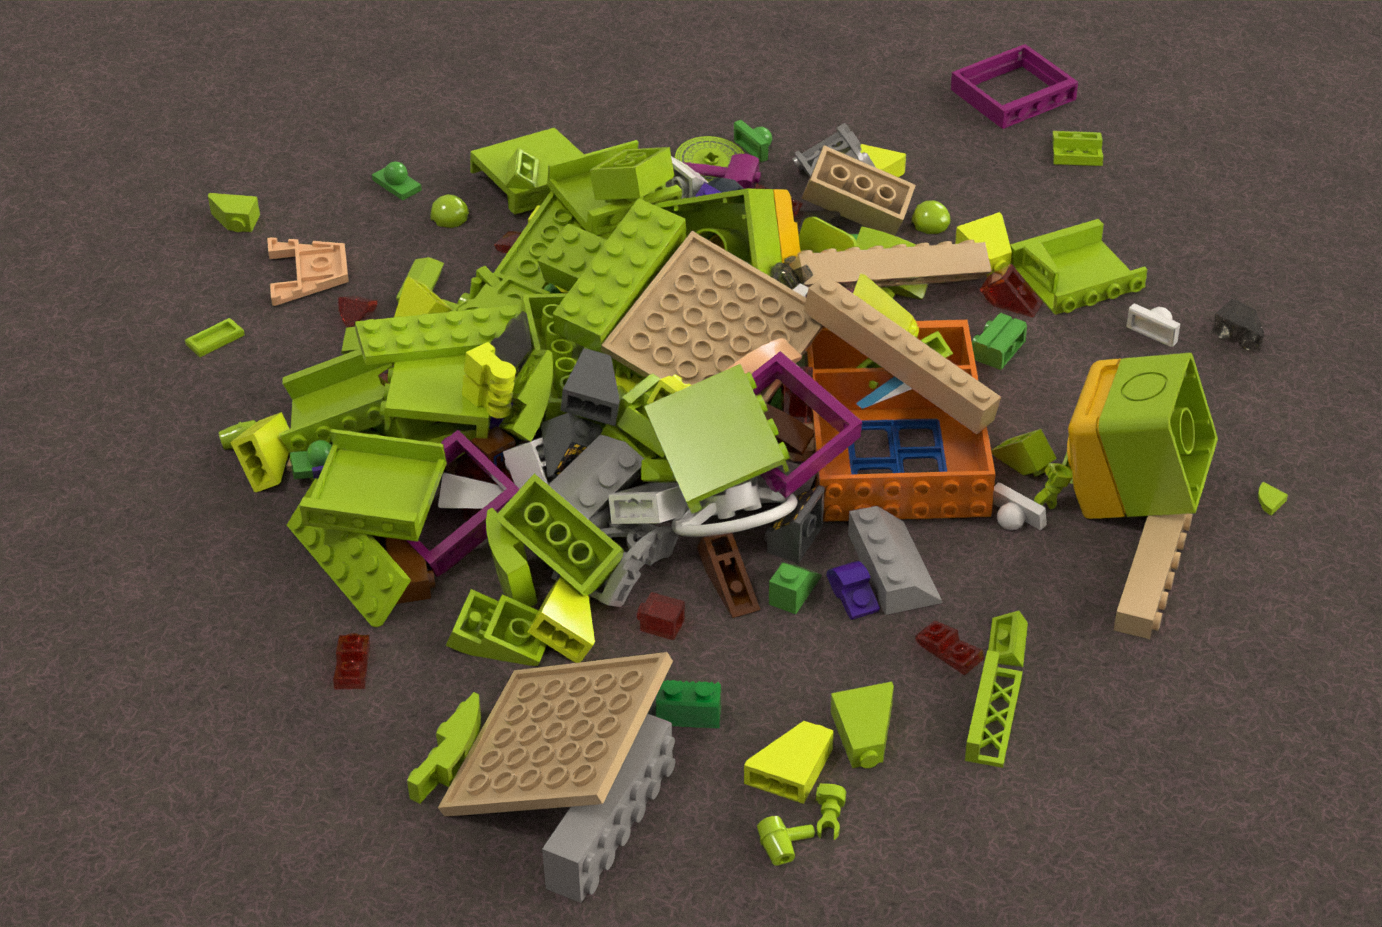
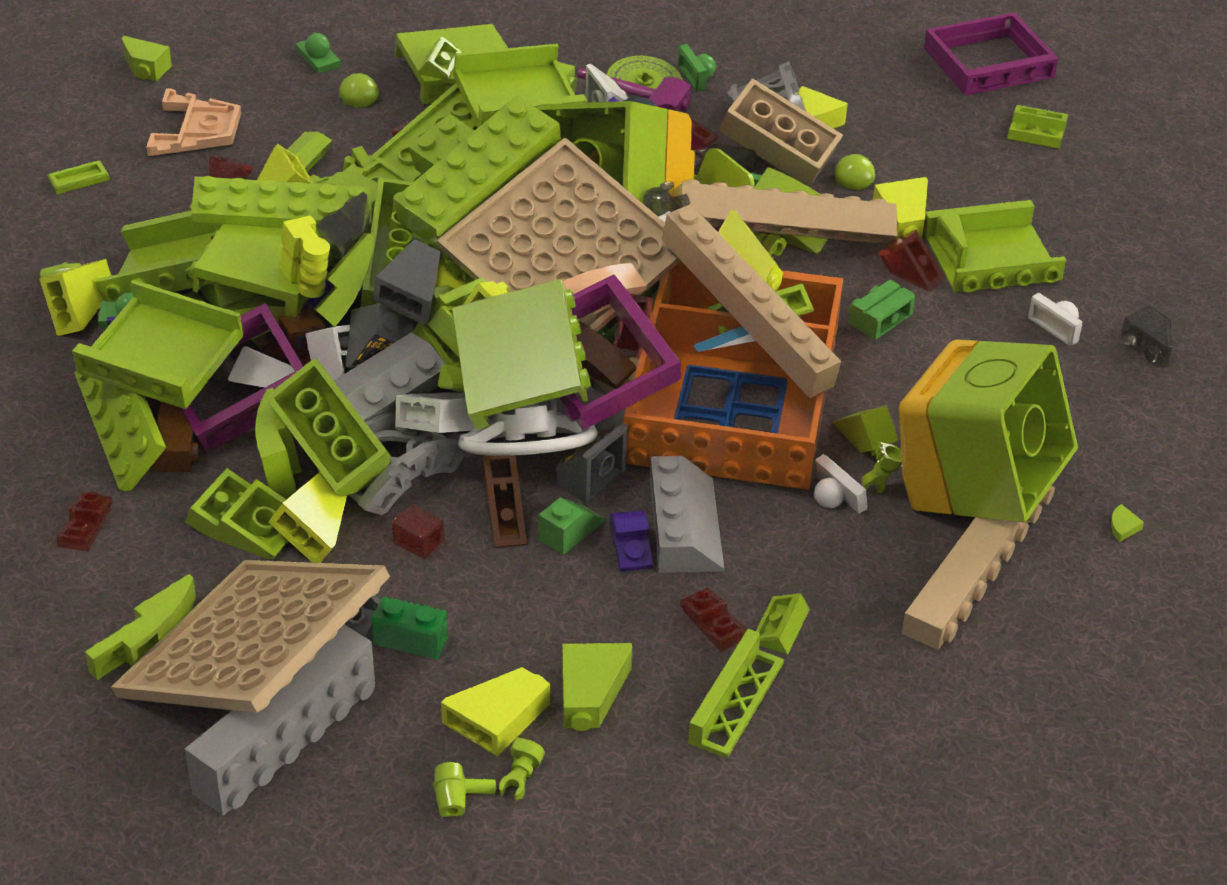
camera: 10 degrees right, 0 degrees up
(632, 174) = (536, 75): lime brick -> none

